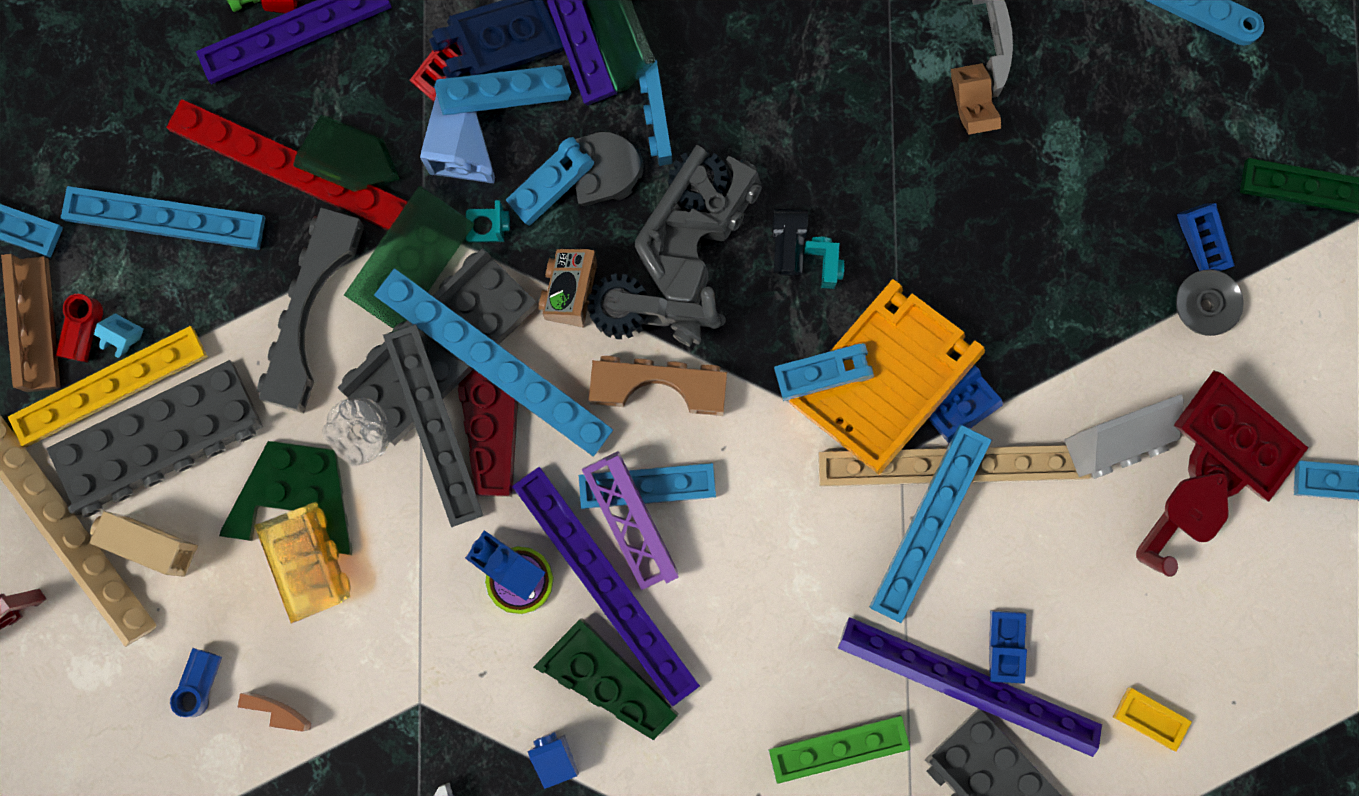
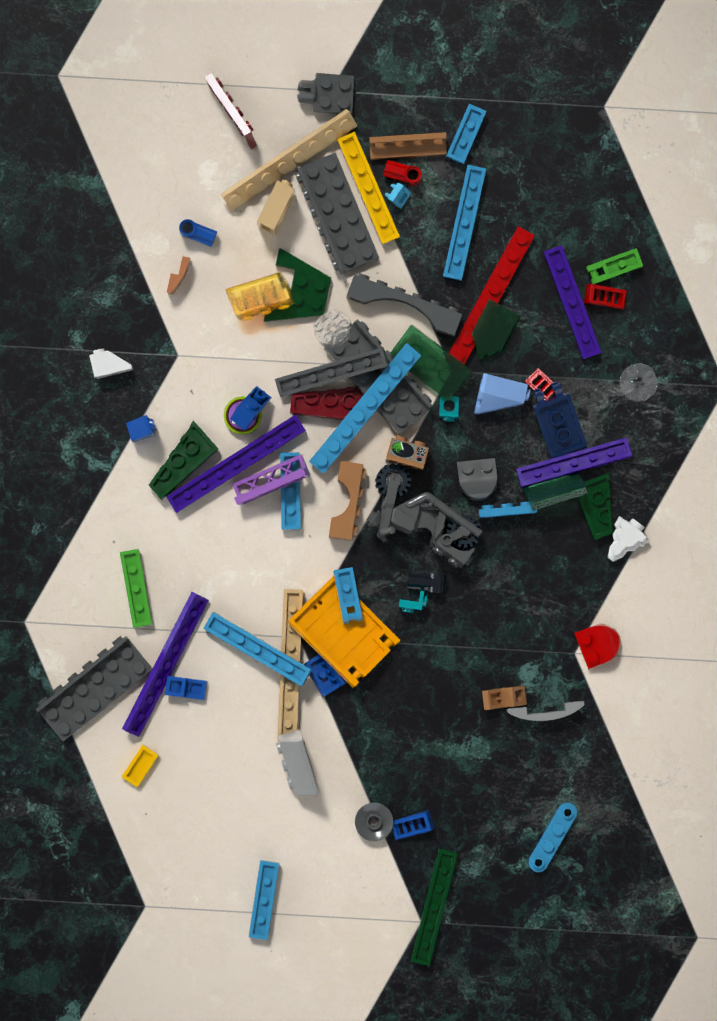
camera: 90 degrees right, 5 degrees up
(502, 89) = (525, 422): dark azure plate -> none
(550, 181) = (470, 446): dark azure plate -> none
(1243, 448) = (287, 822): dark red plate -> none

